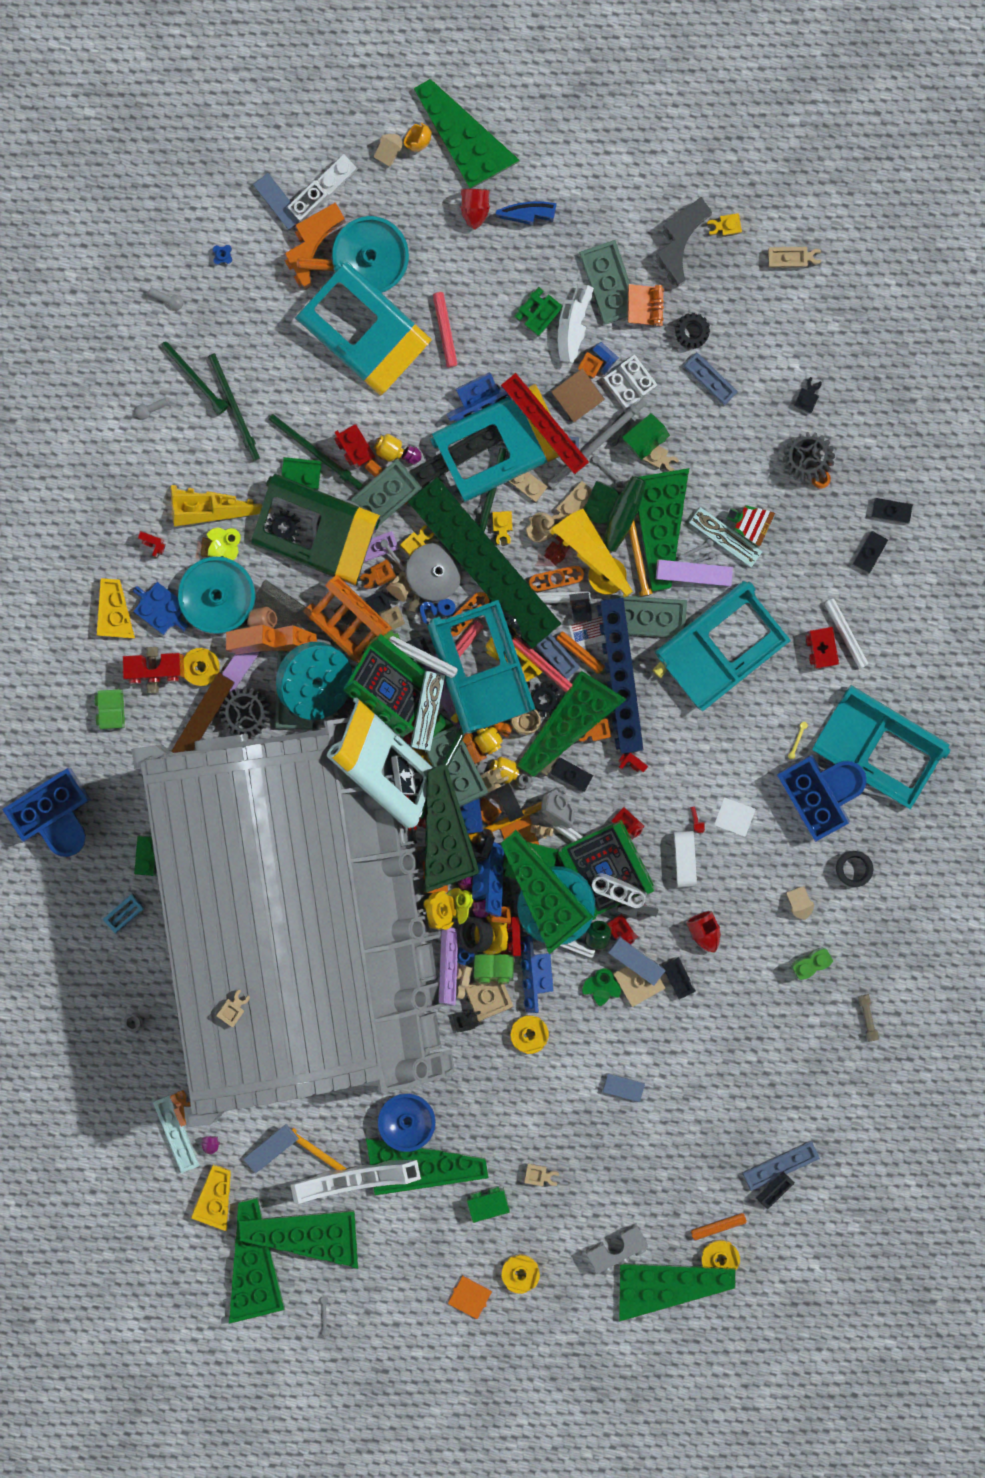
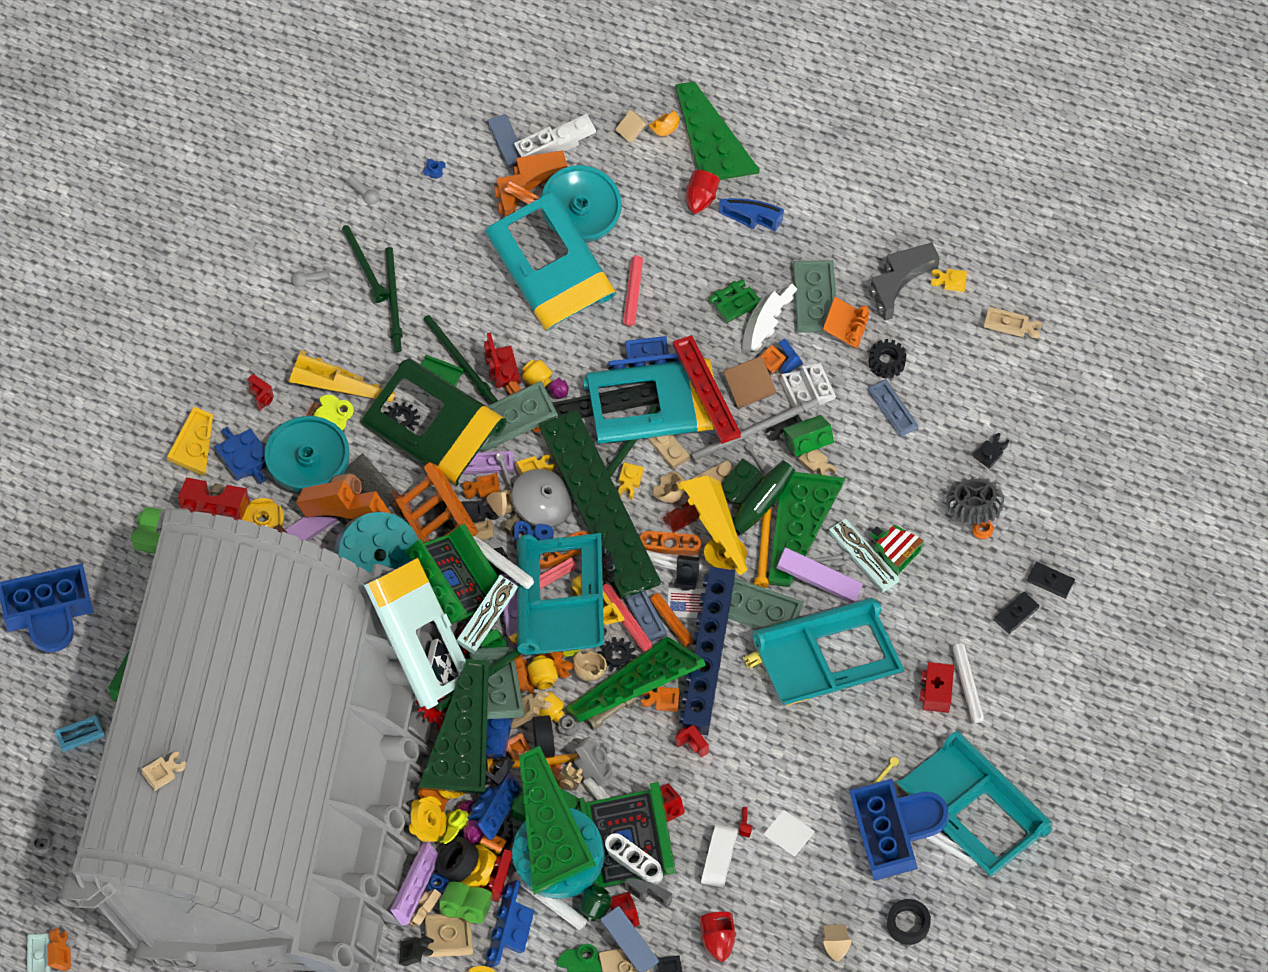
camera: 15 degrees right, 30 degrees down
(572, 774) = (622, 736): black plate -> none

